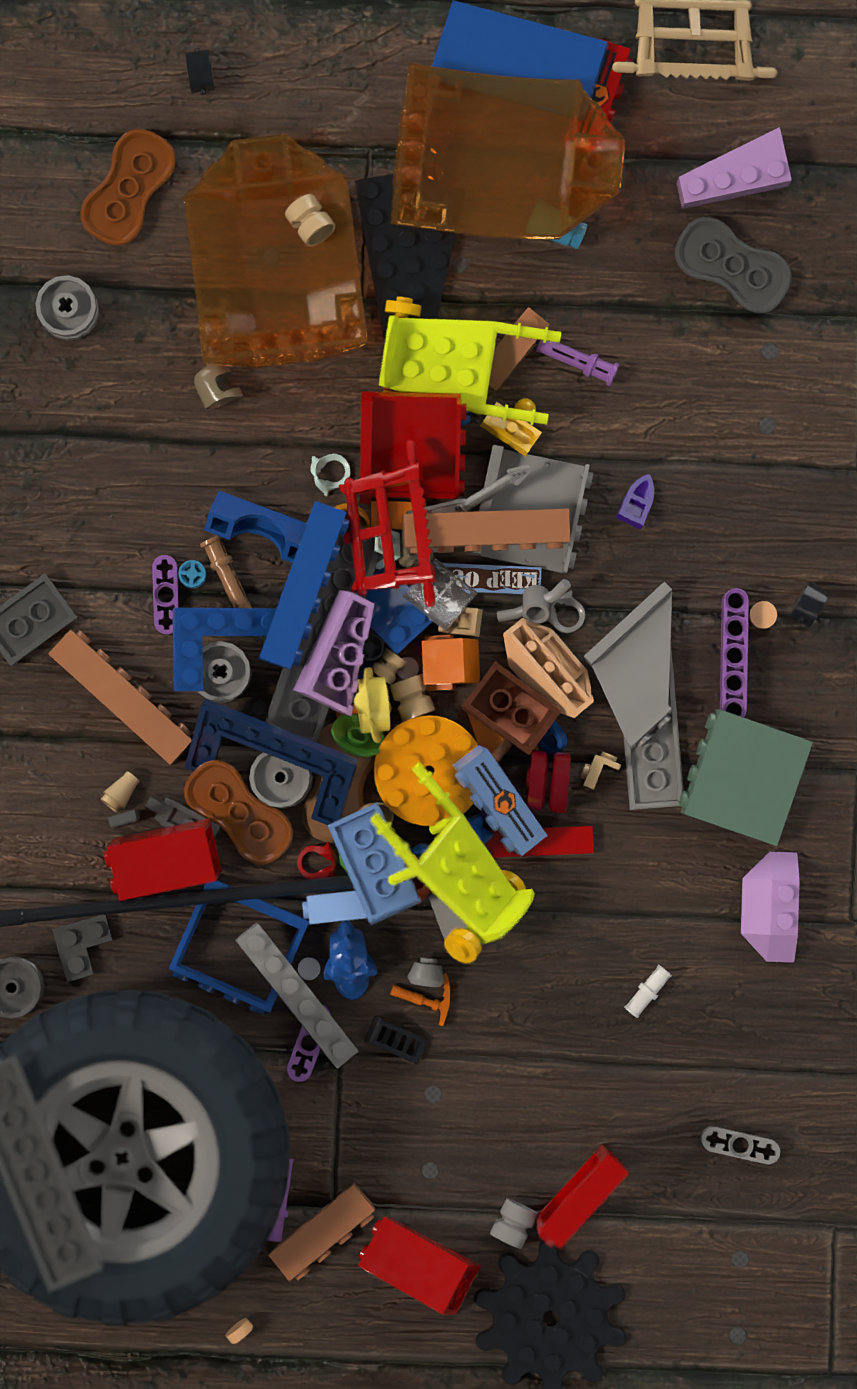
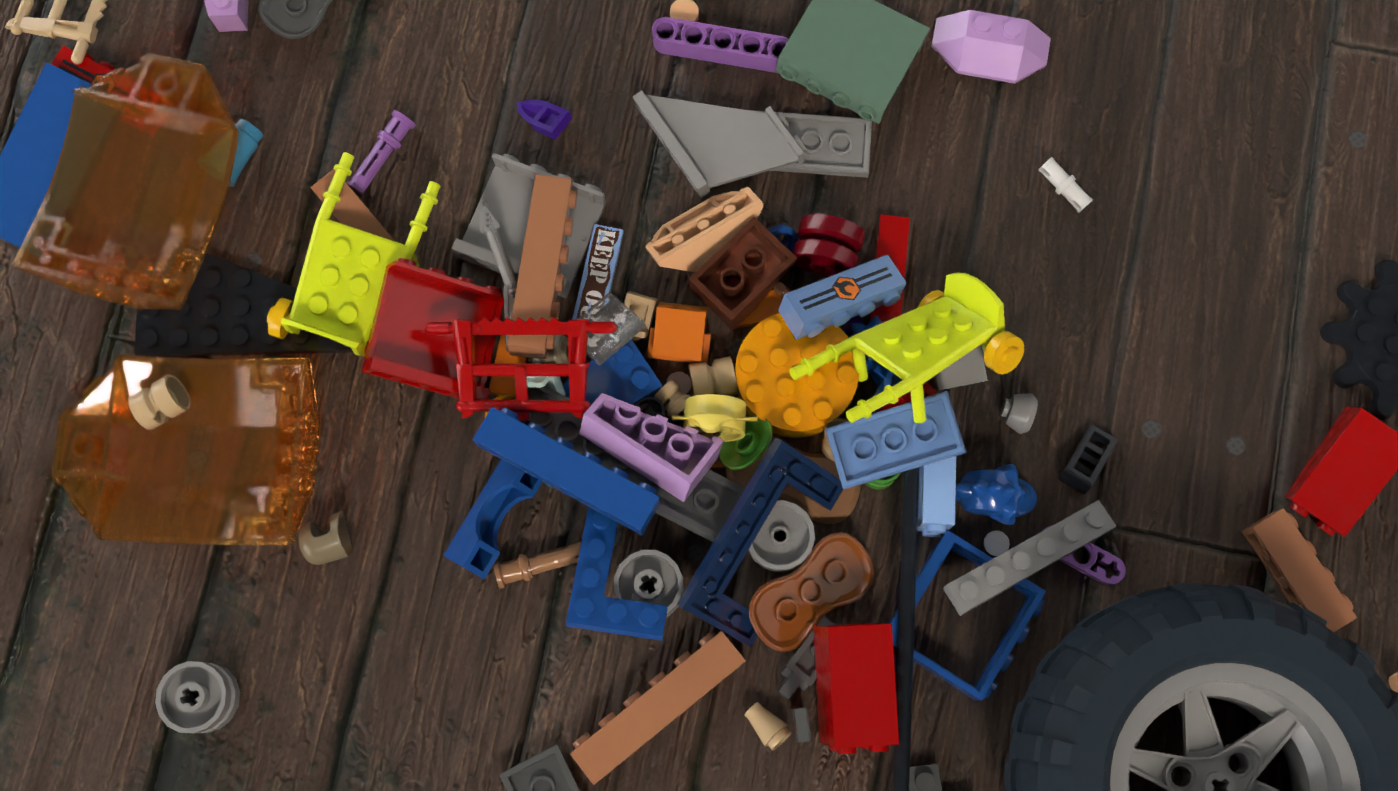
camera: 75 degrees left, 10 degrees down
(118, 204) = (95, 620): dark orange plate -> none
(157, 574) = (525, 642): medium lavender beam -> none
(192, 570) = (527, 599): dark azure wheel -> none
(318, 464) = (436, 442): light aqua piece -> none
(325, 851) = (868, 502): red piece -> none
(420, 999) = (1046, 425): orange piece -> none
(513, 1224) = (1306, 360): light grey wheel -> none
(514, 433) = (441, 230): yellow plate -> none
(535, 603) = (632, 232): light grey piece -> none
(566, 599) = (649, 223): light grey piece -> none
(580, 1197) = (1316, 258): red window -> none
(591, 772) = (820, 200): tan bracket -> none
(762, 1142) = (1248, 110): light grey beam -> none

